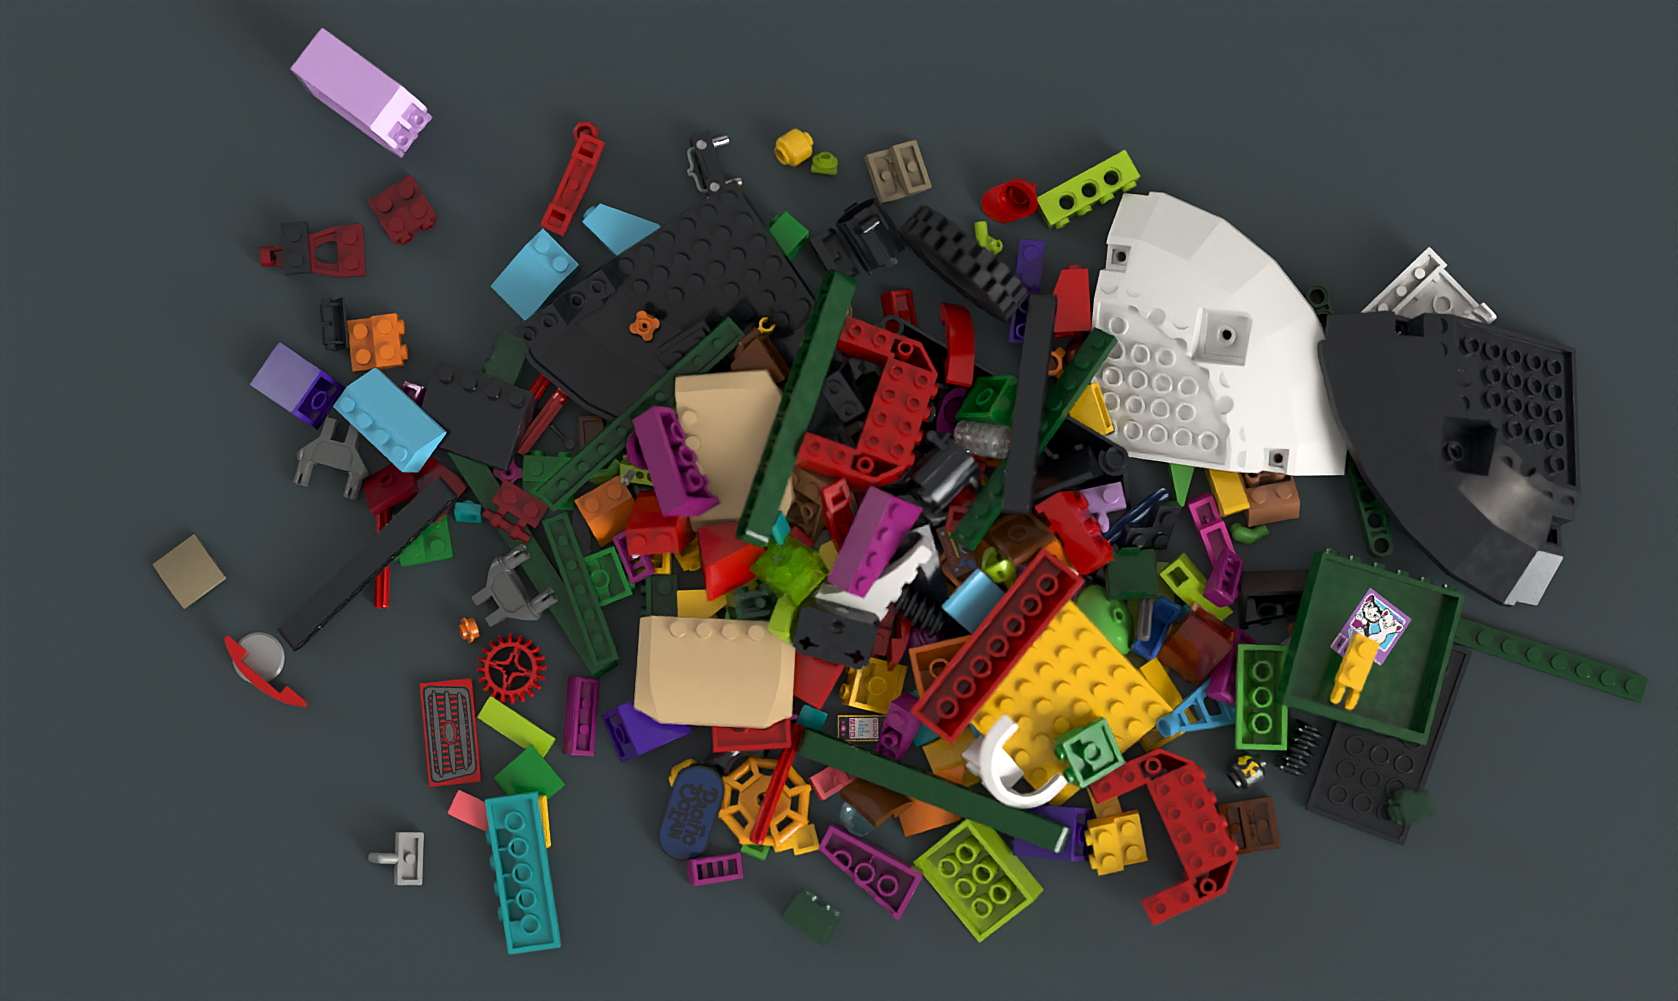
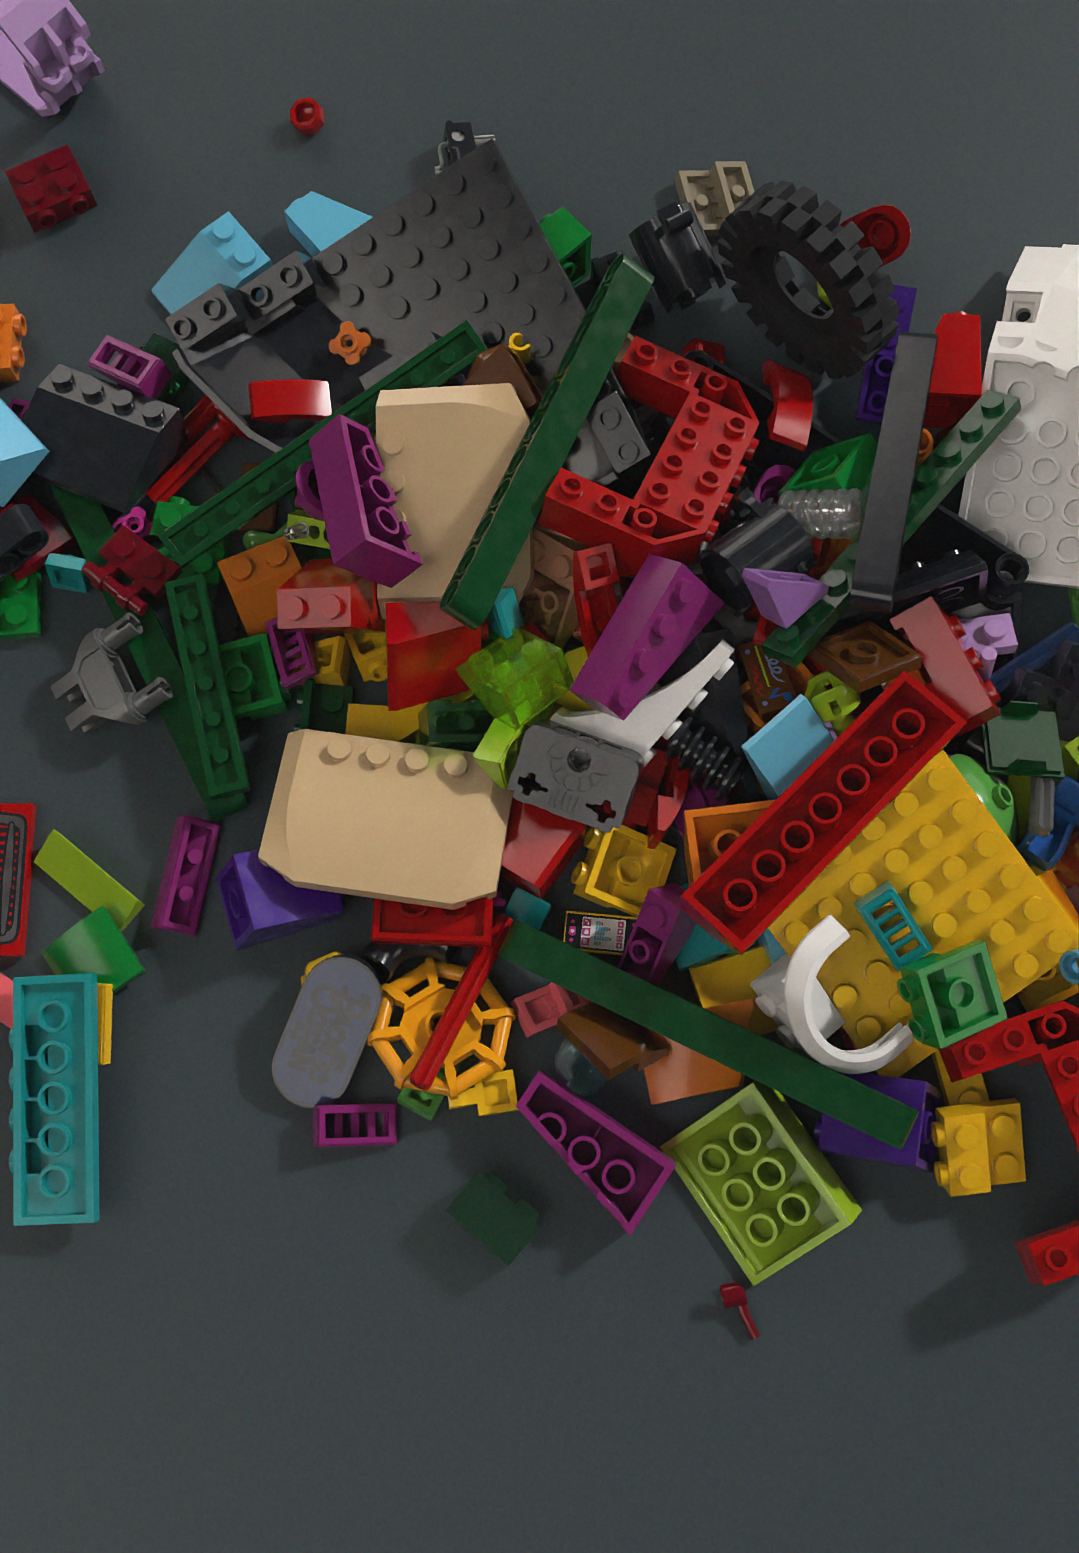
camera: 10 degrees right, 10 degrees down
(468, 629) = (40, 733): orange plate -> none
(502, 372) = (149, 378): none -> magenta slope
(514, 657) = (102, 766): red gear -> none
(573, 184) = (284, 173): red slope -> none
(610, 380) = (288, 399): none -> red slope
(793, 147) = (581, 153): yellow head -> none
(825, 164) = (620, 181): lime plate -> none
(962, 502) = (783, 595): none -> medium lavender slope
(966, 950) = (735, 1296): none -> dark red hand
(1033, 700) = (877, 899): none -> teal slope
(1092, 410) = (973, 502): yellow slope -> none
(1118, 165) = (1019, 213): lime brick -> none

